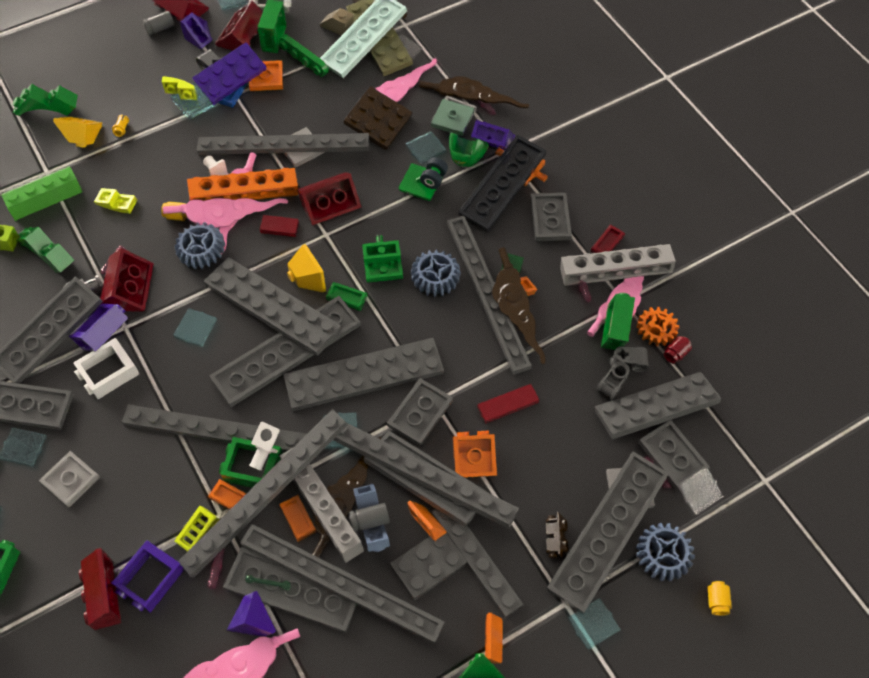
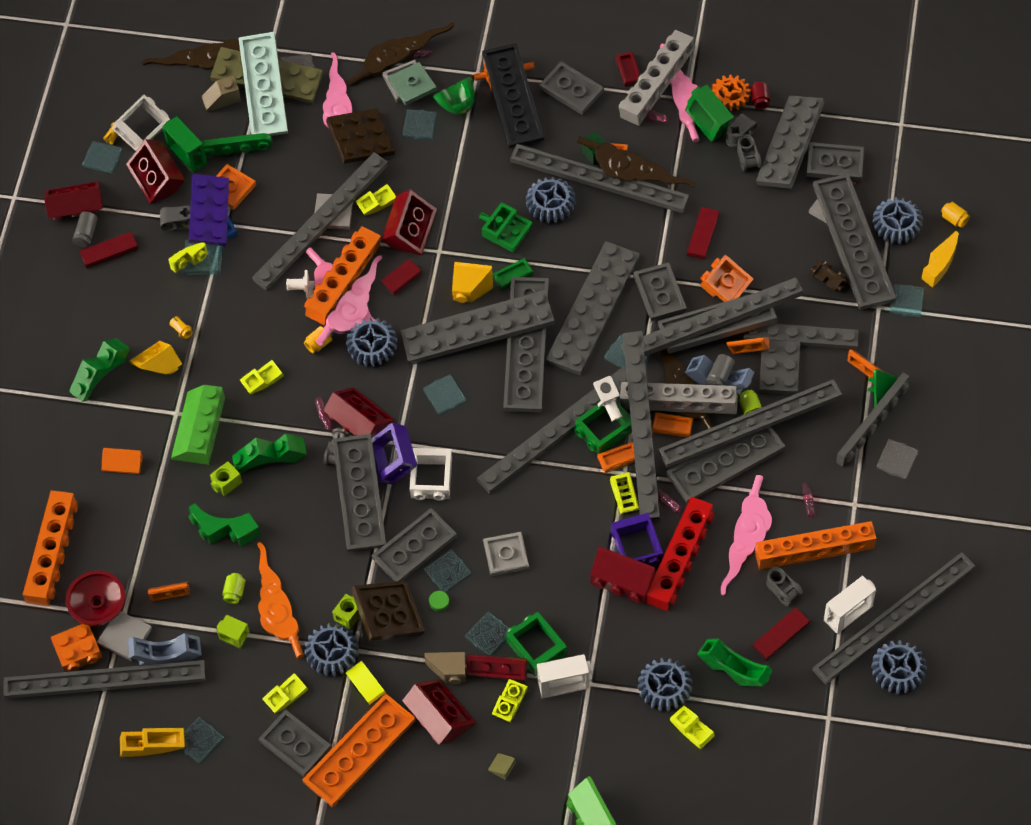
camera: 45 degrees left, 0 degrees up
(104, 632) = (695, 510): none -> red brick
(155, 46) = (108, 249): none -> dark red tile
(196, 30) = (127, 208): dark purple slope -> none
(252, 617) = (725, 495): dark purple slope -> none
(285, 585) = (721, 460): clear green hinge -> none
(331, 165) = (377, 201): none -> neon yellow slope
(367, 566) = (749, 401): none -> lime brick
(424, 181) = (456, 148): plate -> none
(492, 134) = (465, 68): dark purple window -> none
(660, 622) = (940, 260): none -> yellow slope
(700, 491) = (875, 166): clear piece -> none

